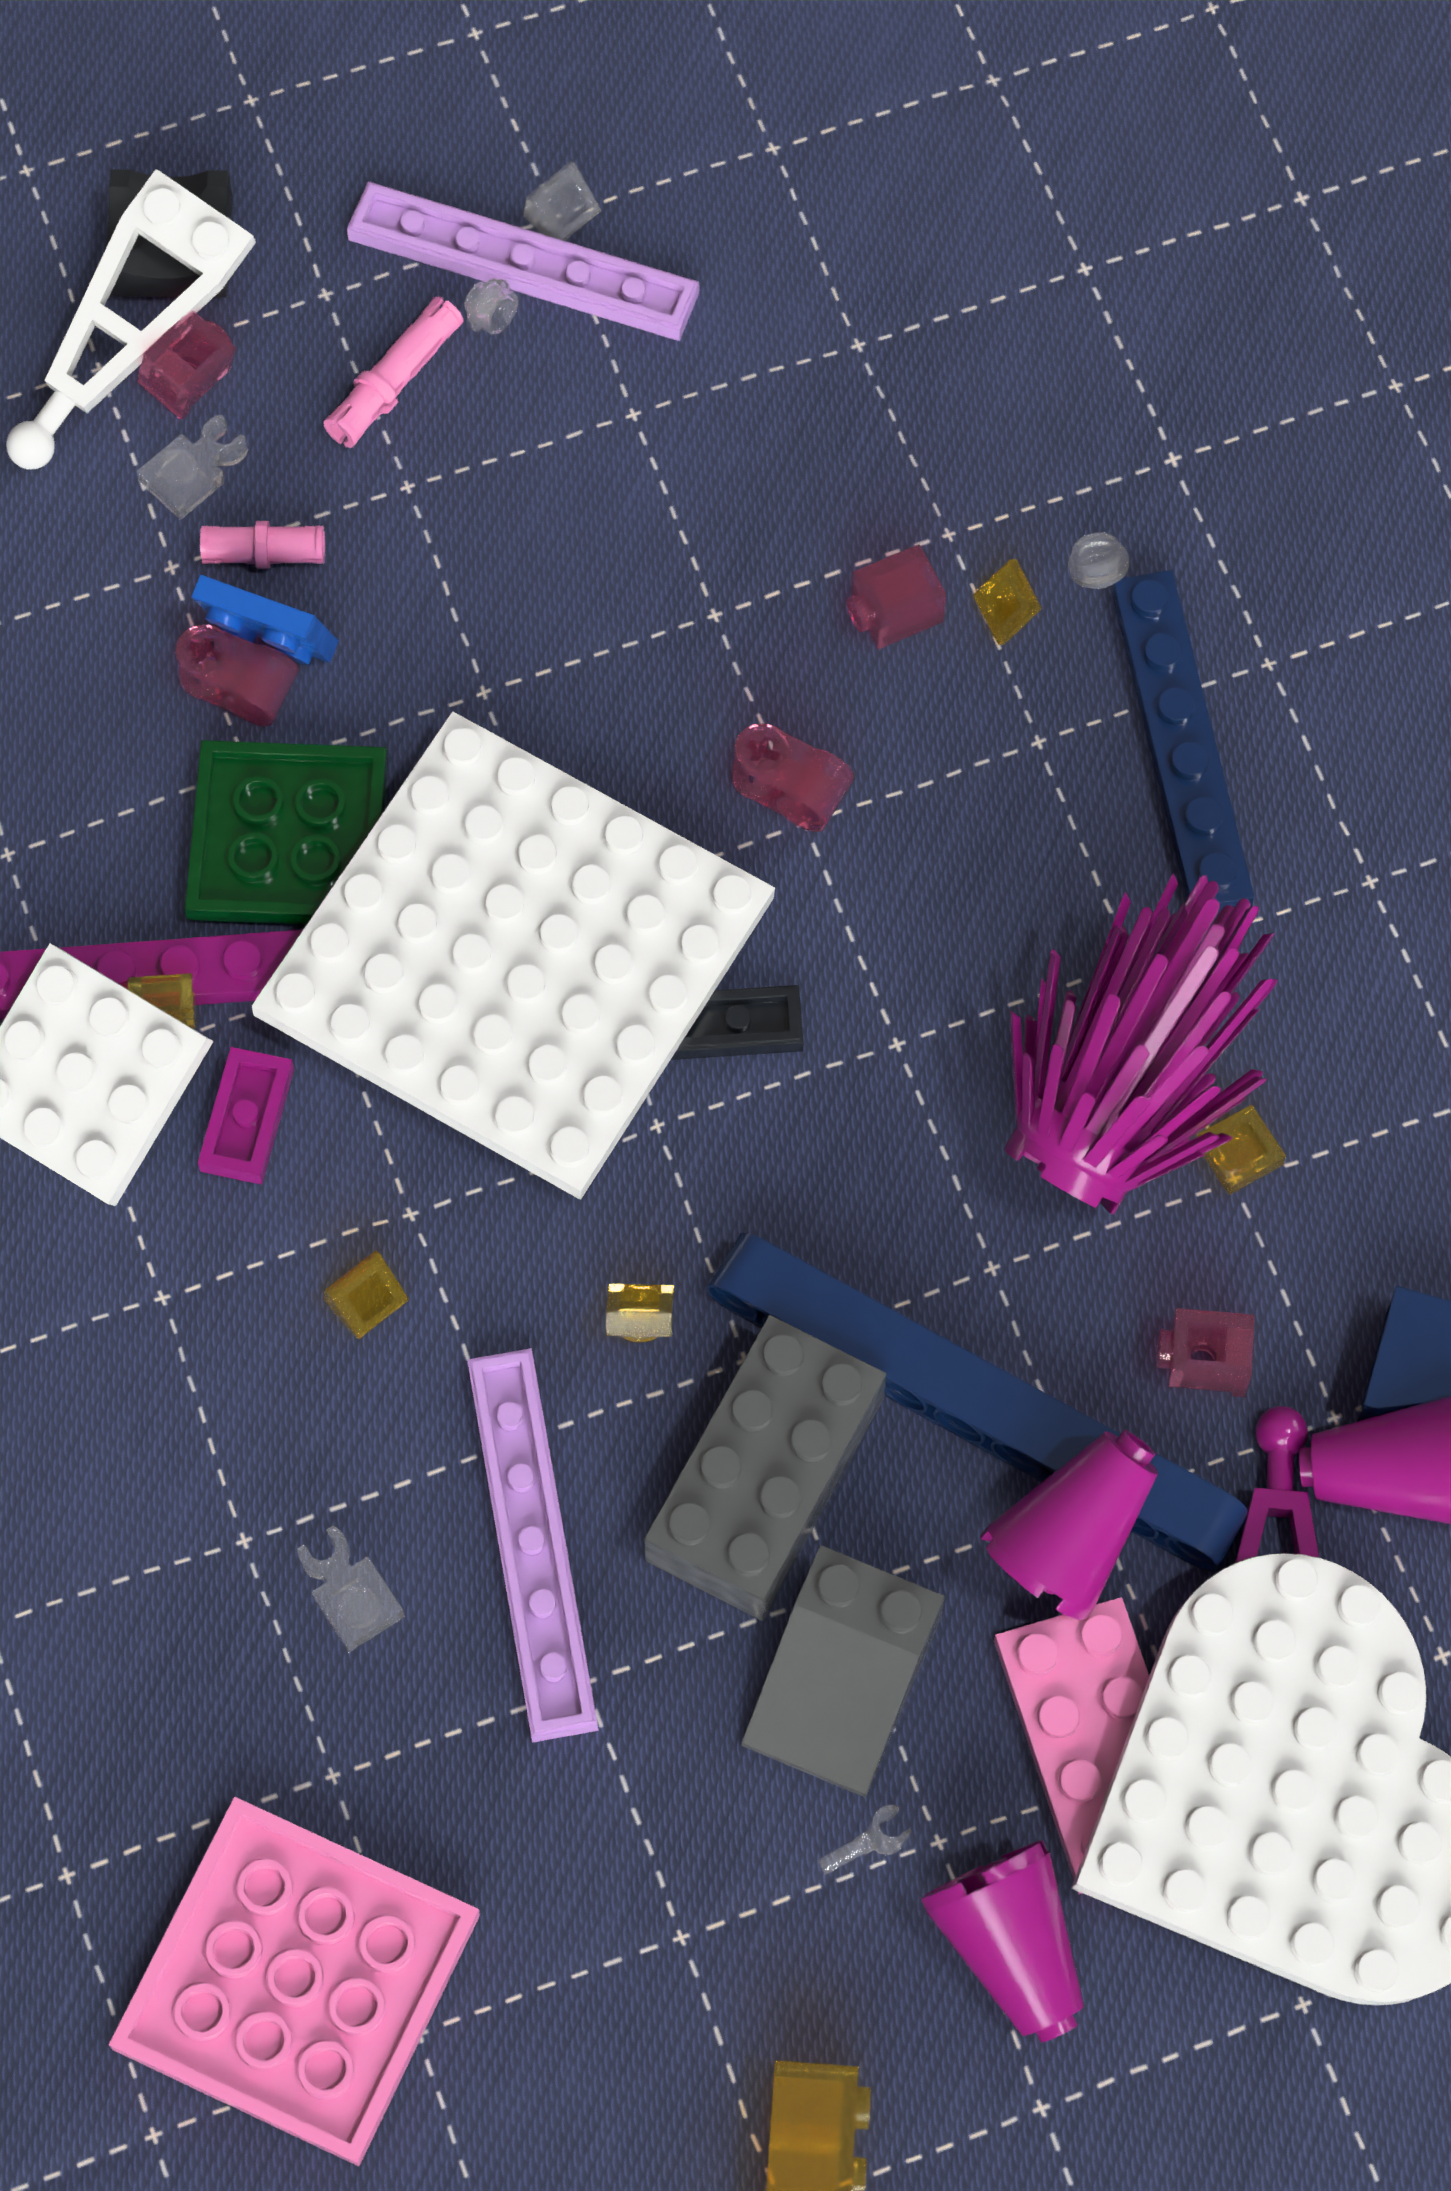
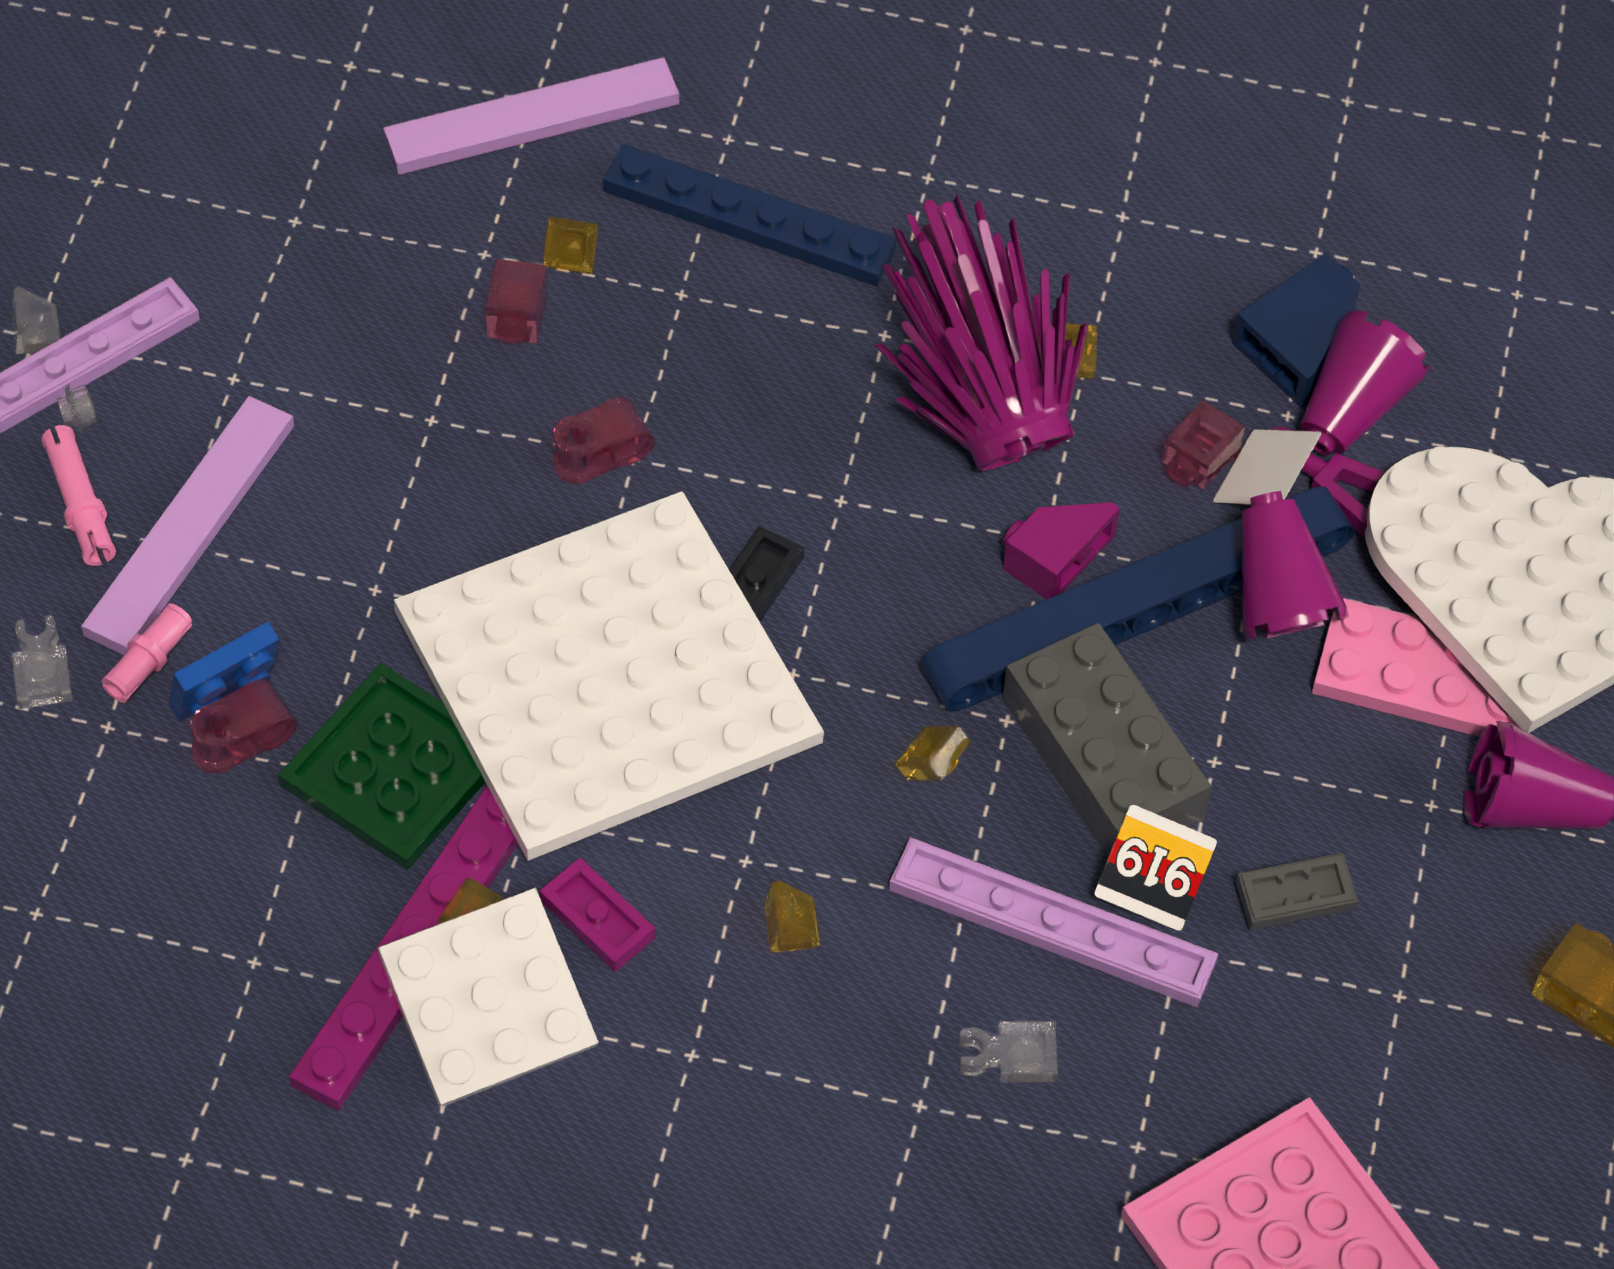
camera: 60 degrees left, 10 degrees down
(436, 485) = (188, 525): none -> lavender tile
(643, 1602) = (1155, 867): none -> sticker
(723, 1761) = (1296, 891): none -> dark grey plate
(843, 1670) = (1280, 778): dark grey slope -> none
(866, 1842) = (1407, 837): clear hand -> none
(981, 1282) = (1058, 544): none -> magenta slope
(1098, 561) = (582, 179): clear plate -> none
(1148, 467) = (531, 116): none -> lavender tile
(1226, 1431) = (1267, 465): none -> white sticker

